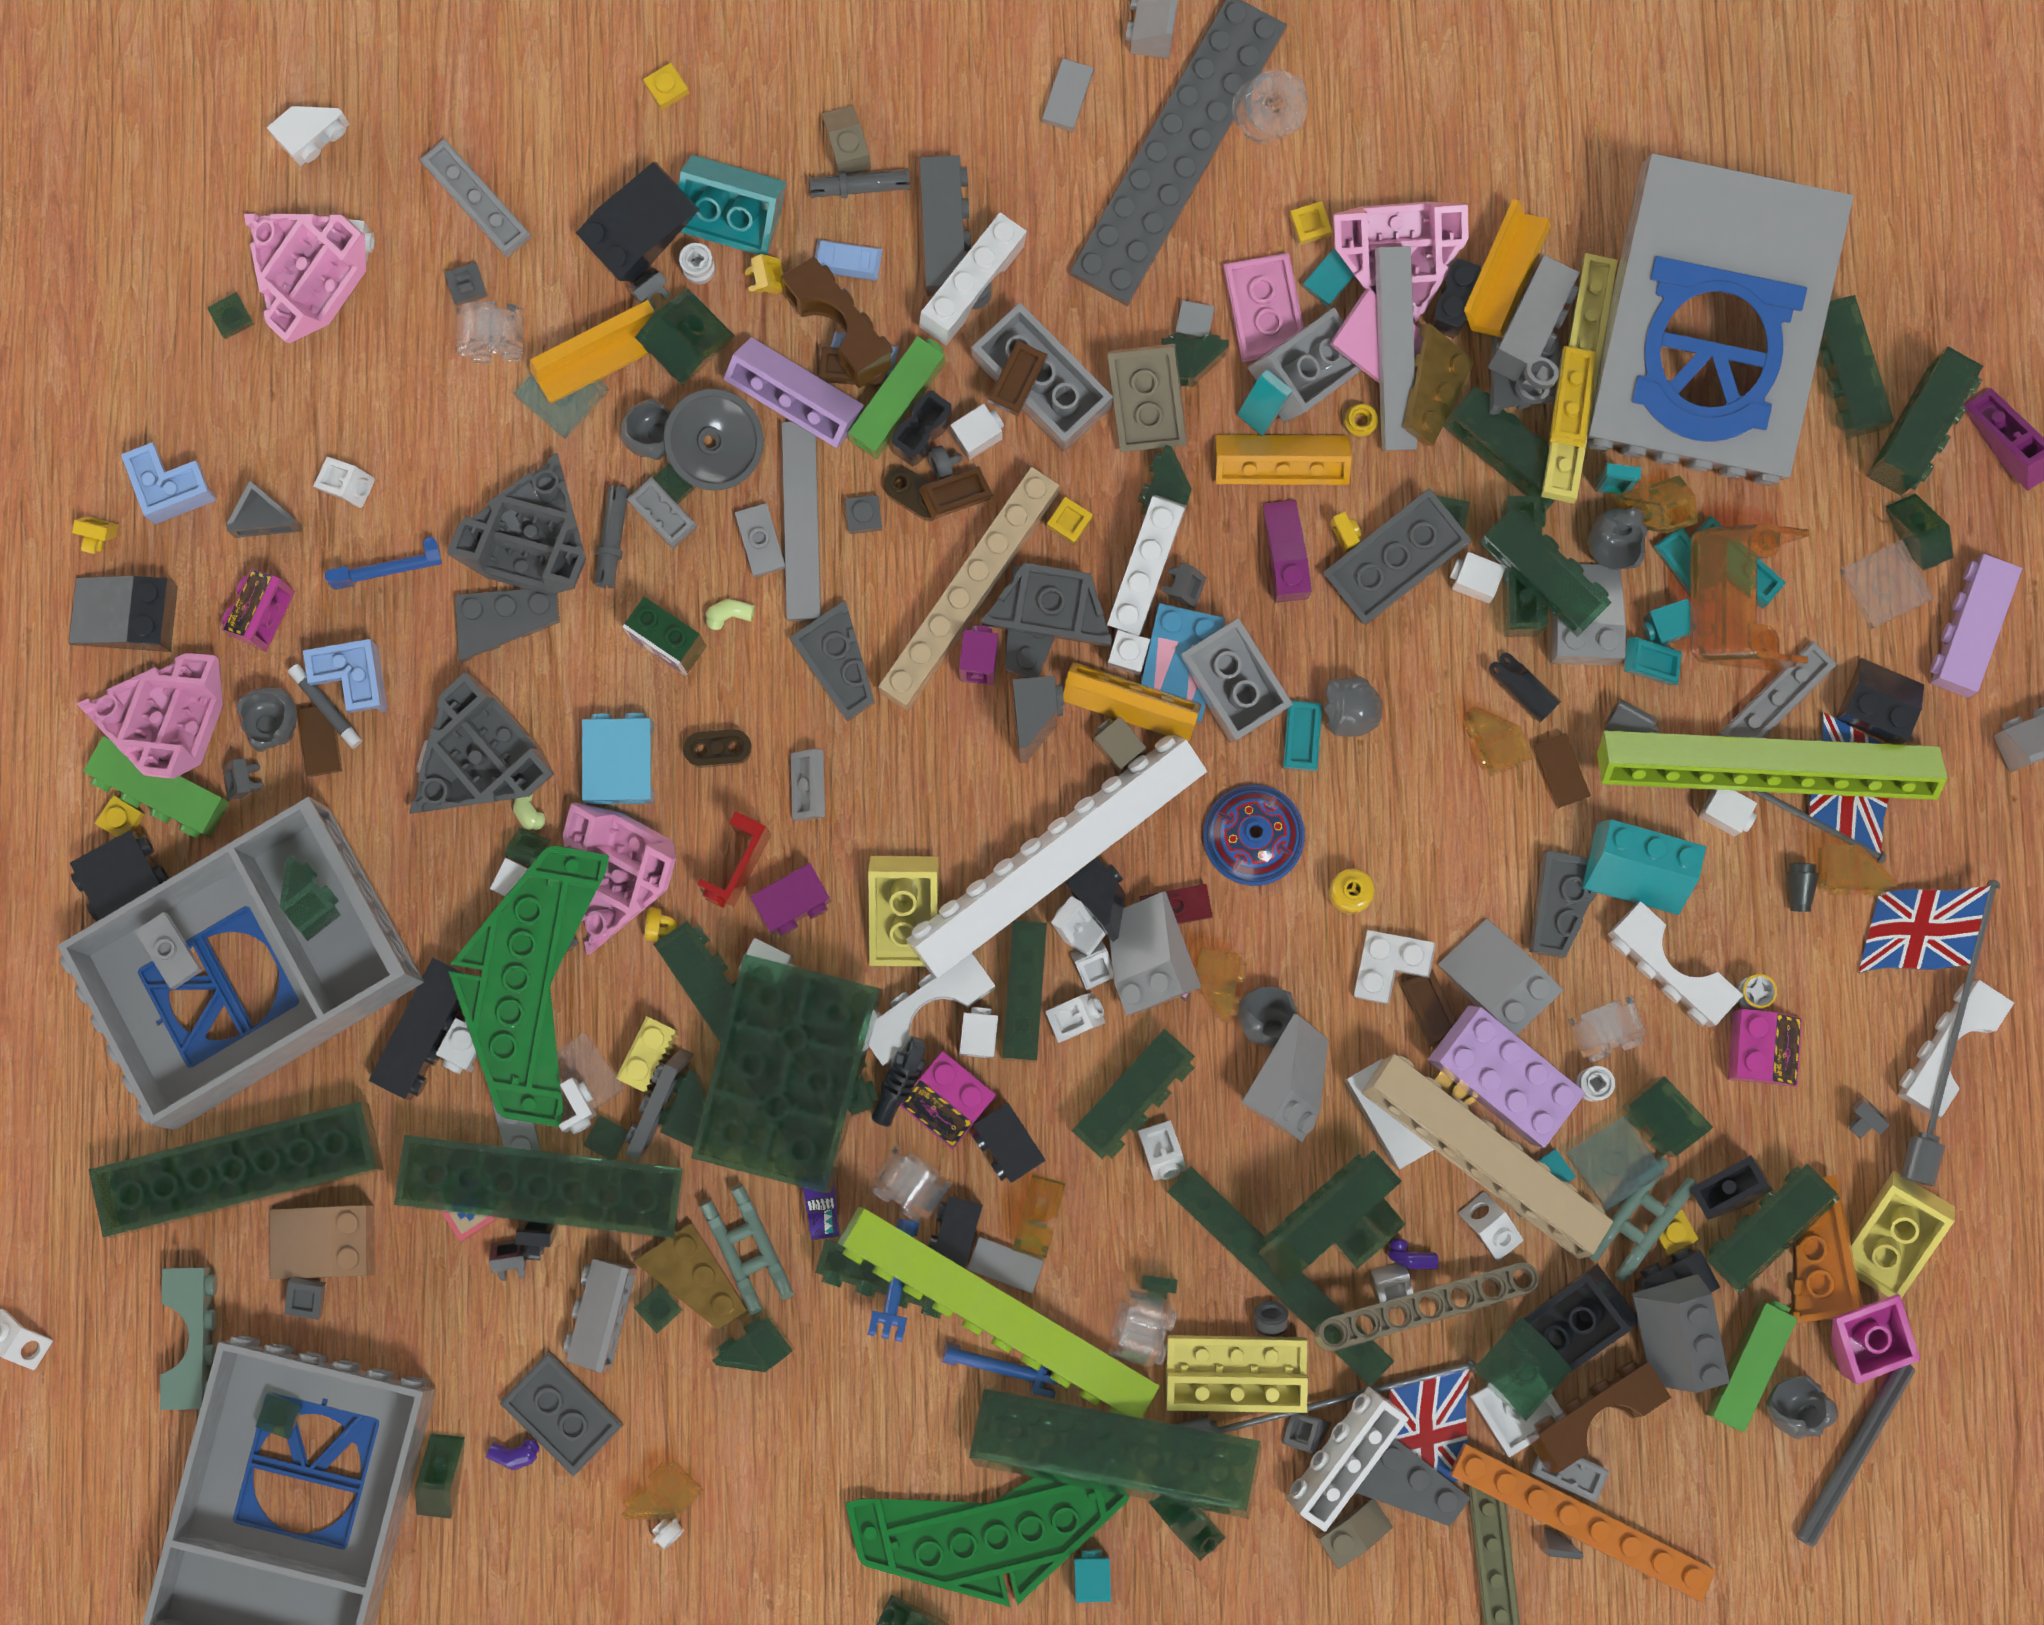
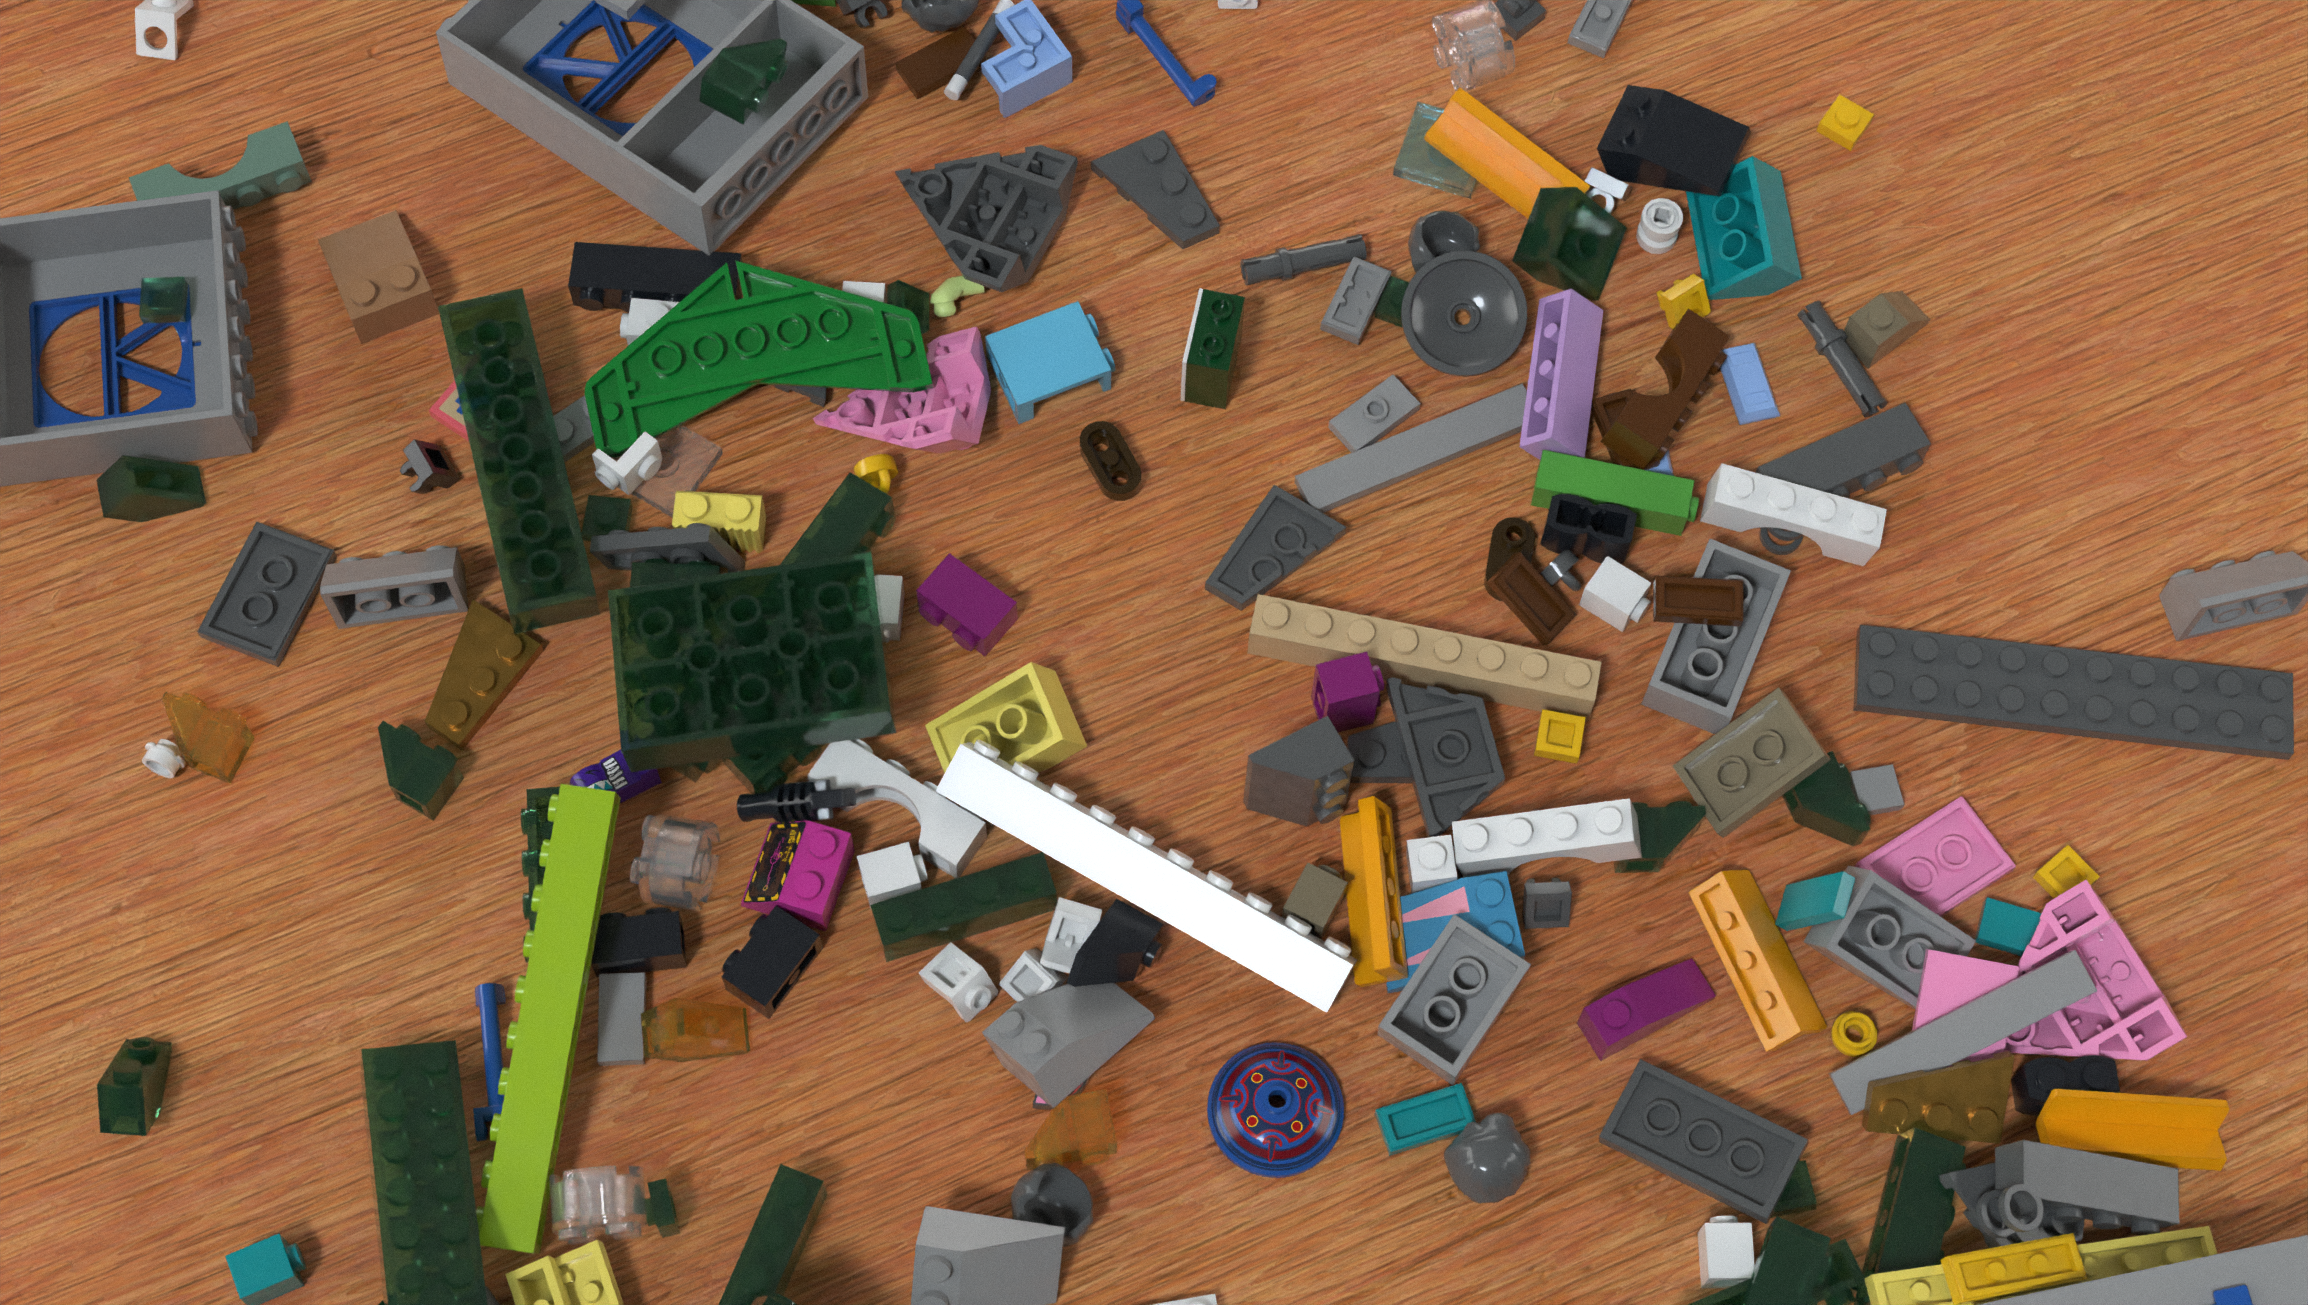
camera: 65 degrees right, 15 degrees down
(235, 1169) = (427, 155): clear green brick -> none
(304, 1298) = (306, 276): dark grey tile -> none
(514, 1458) = (199, 563): dark purple arm -> none
(525, 535) = (1262, 165): dark grey wedge -> none
(535, 1237) = (460, 484): black tile -> none
(658, 1308) = (426, 647): clear green plate -> none
(726, 609) = (1277, 409): yellowish green arm -> none
(727, 1239) = (536, 692): sand green piece -> none
(759, 838) = (983, 533): red panel -> none
(807, 785) = (1118, 568): light grey plate -> none
(863, 514) = (1458, 513): dark grey plate -> none
(889, 1314) = (503, 890): blue hinge -> none
(975, 1543) = (264, 1114): green wing -> none
(1067, 95) = (2069, 543): light grey tile -> none
(1133, 1094) = (887, 1083): clear green brick -> none
(1162, 1151) = (833, 1147): white bracket -> none
(1188, 903) = (1153, 1061): dark red plate -> none
(1285, 110) = (2207, 771): clear brick -> none
(1340, 895) = (1248, 1264): yellow head -> none
(1346, 531) = (1706, 1066): yellow plate -> none

